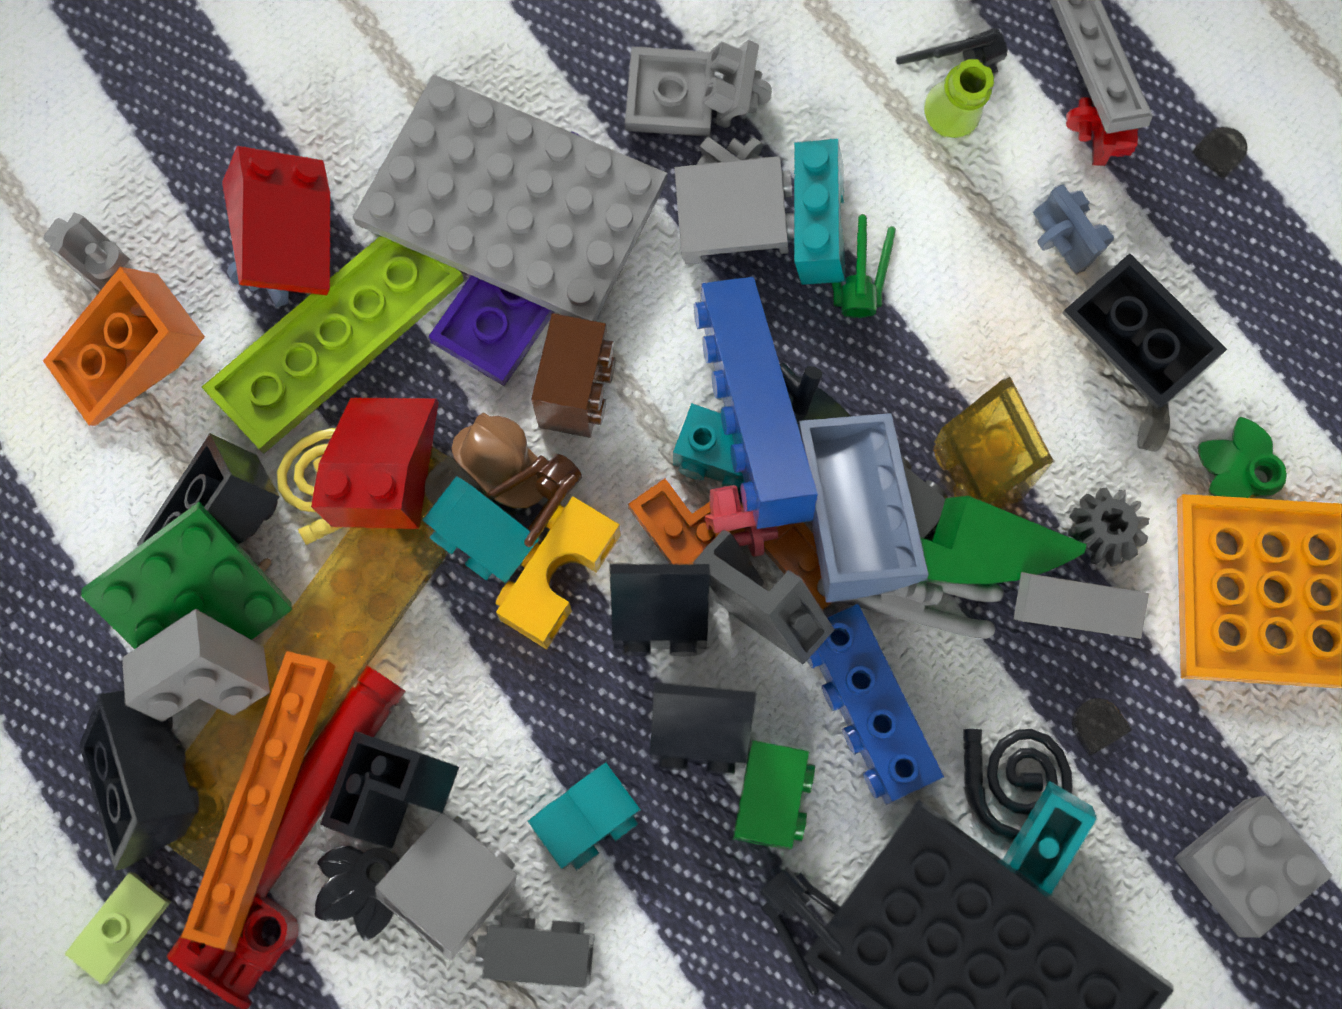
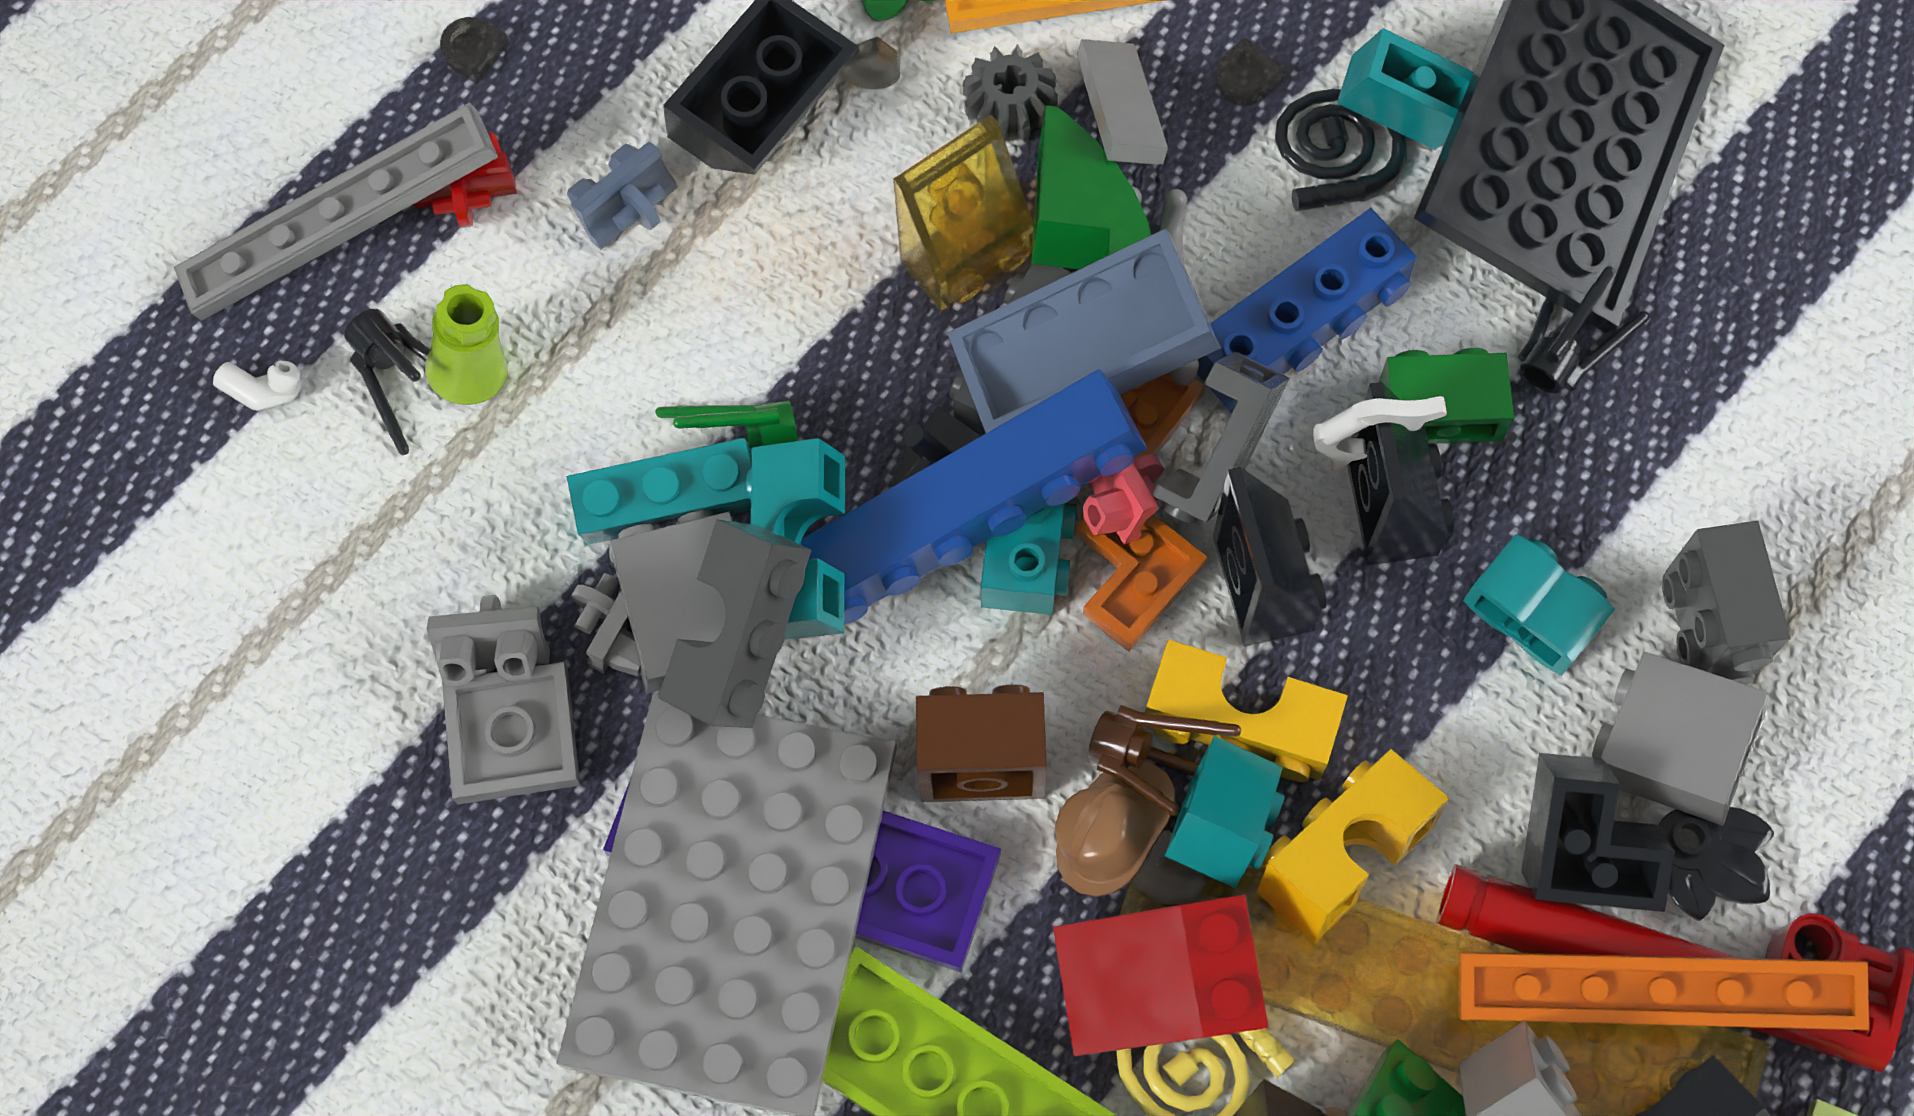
camera: 100 degrees left, 5 degrees down
(460, 646) = (1381, 808): none -> yellow arch
(709, 227) = (759, 584): none -> dark grey arch
(718, 263) = (788, 492): none -> teal arch
(726, 680) = (1332, 434): none -> white helmet

